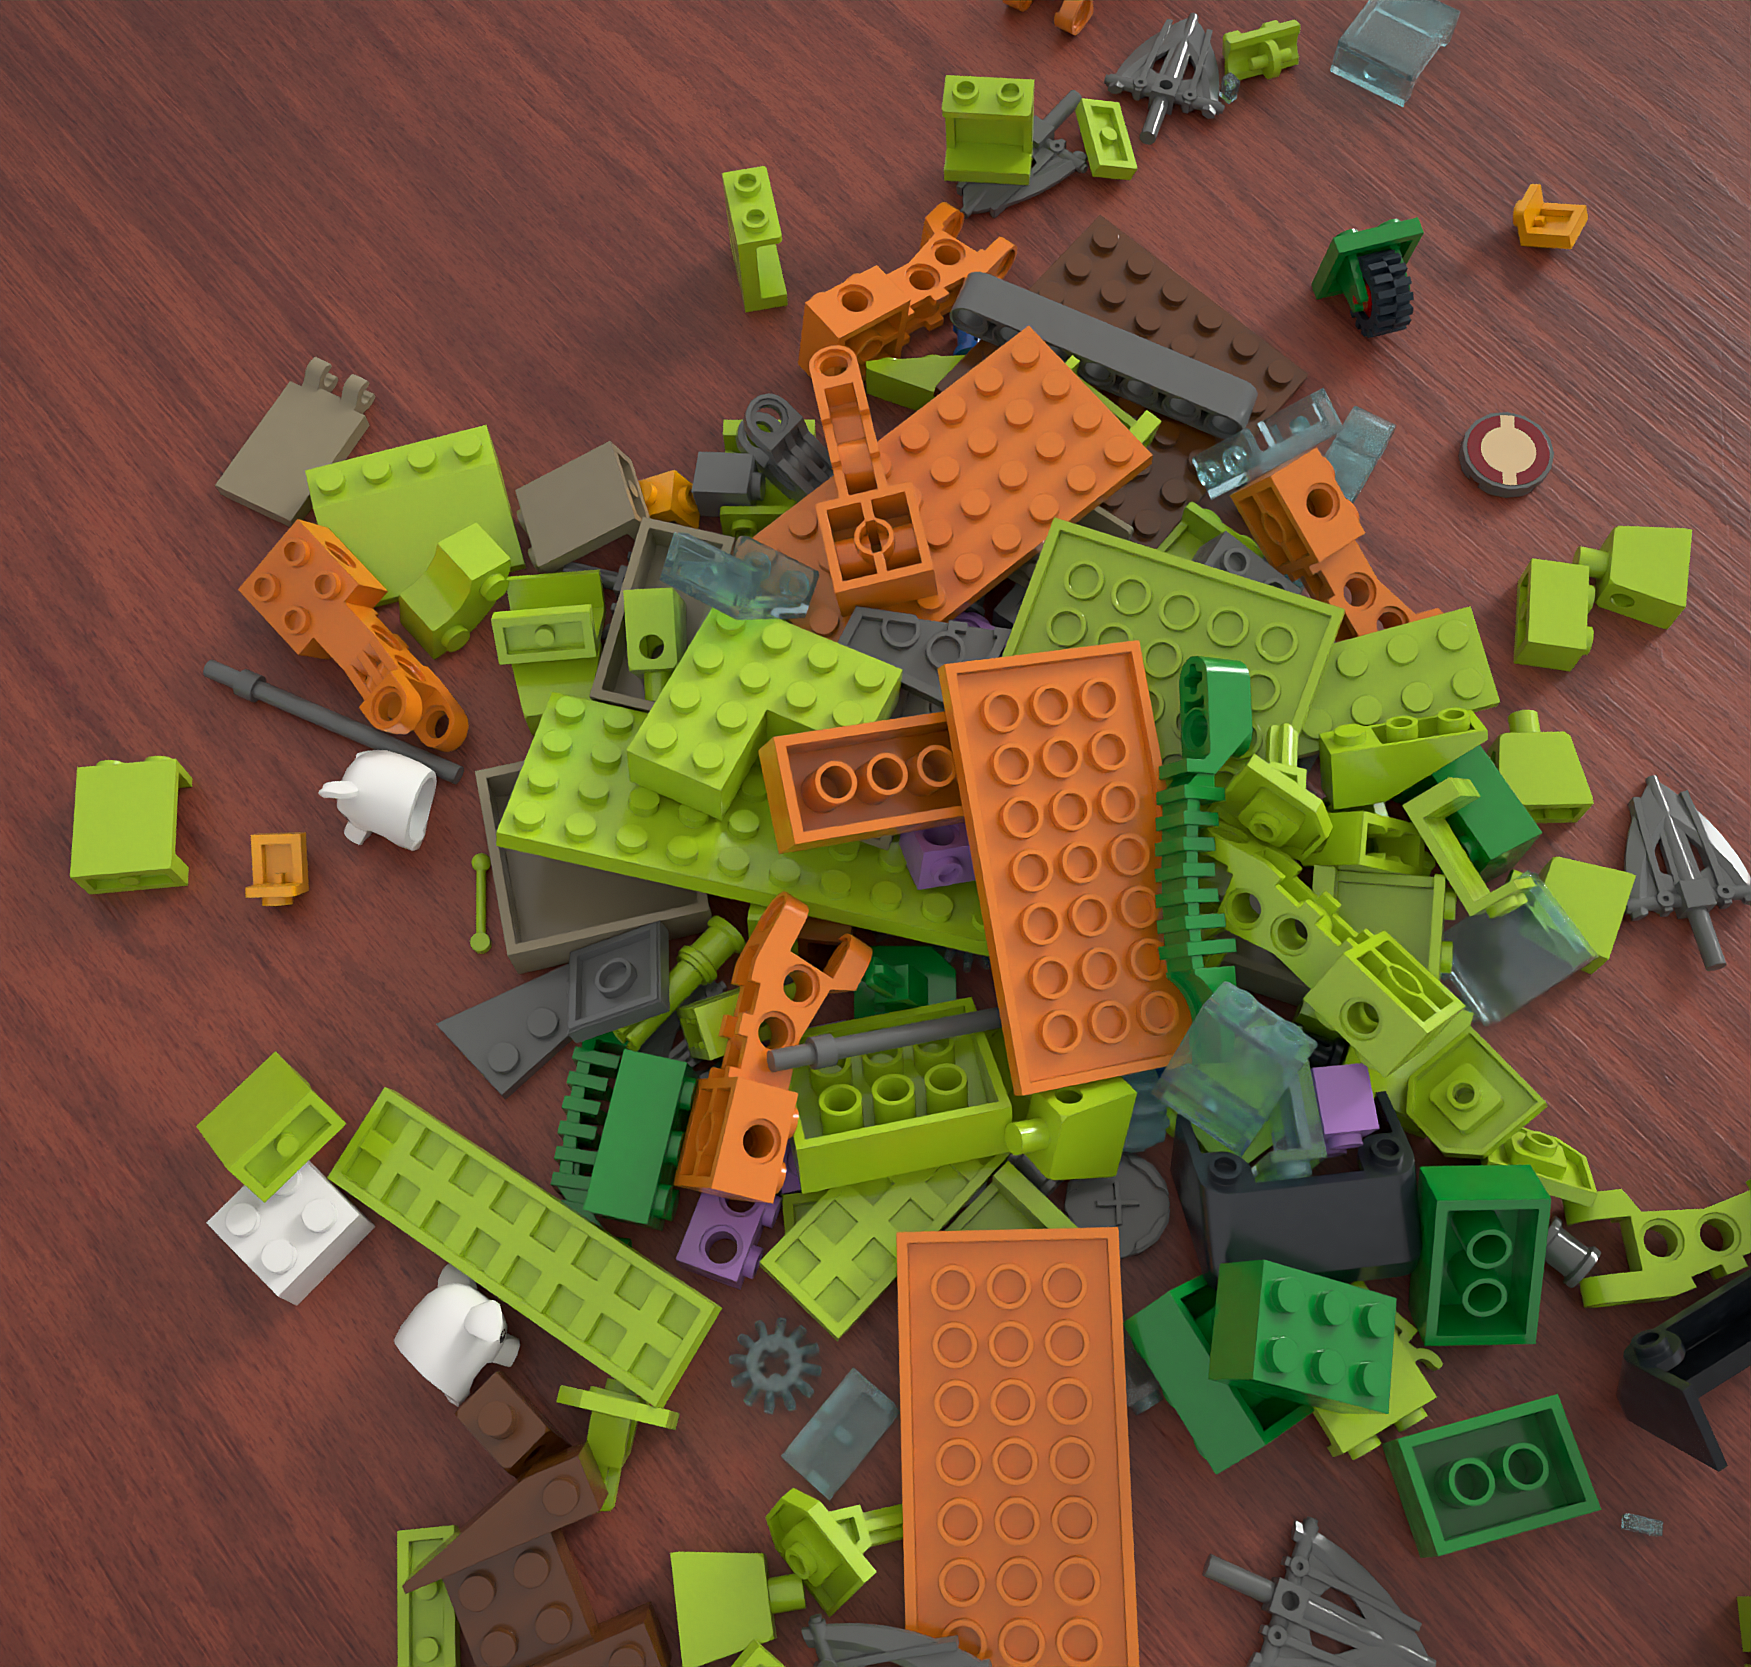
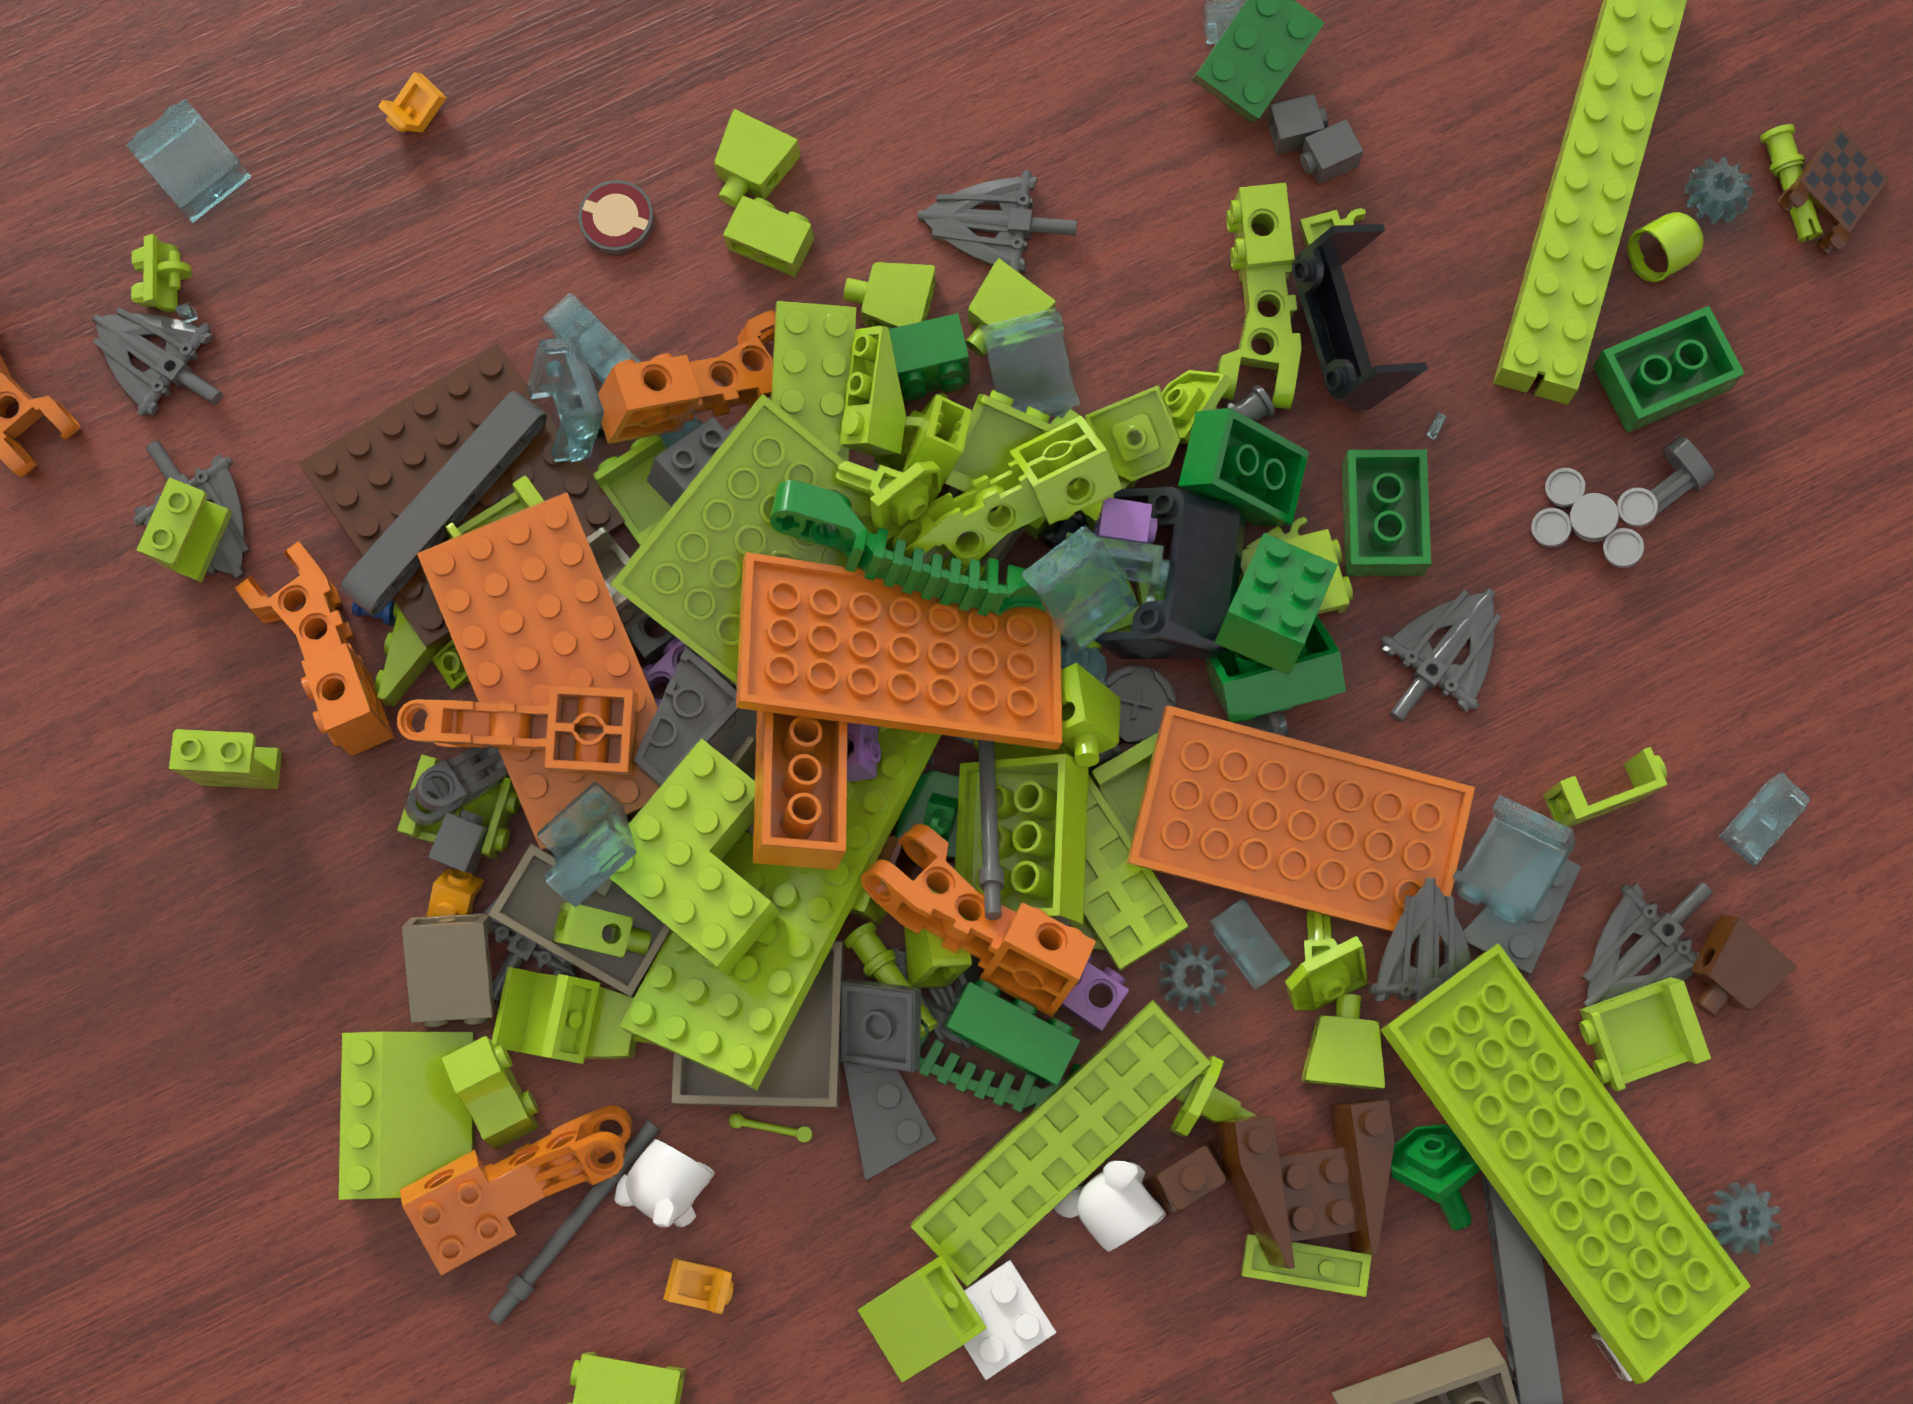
camera: 70 degrees left, 10 degrees up
(298, 433) = (295, 1209): dark tan tile -> none
(1106, 139) = (207, 433): lime plate -> none
(1372, 274) = (430, 262): plate -> none
(1428, 816) = (965, 384): lime panel -> none

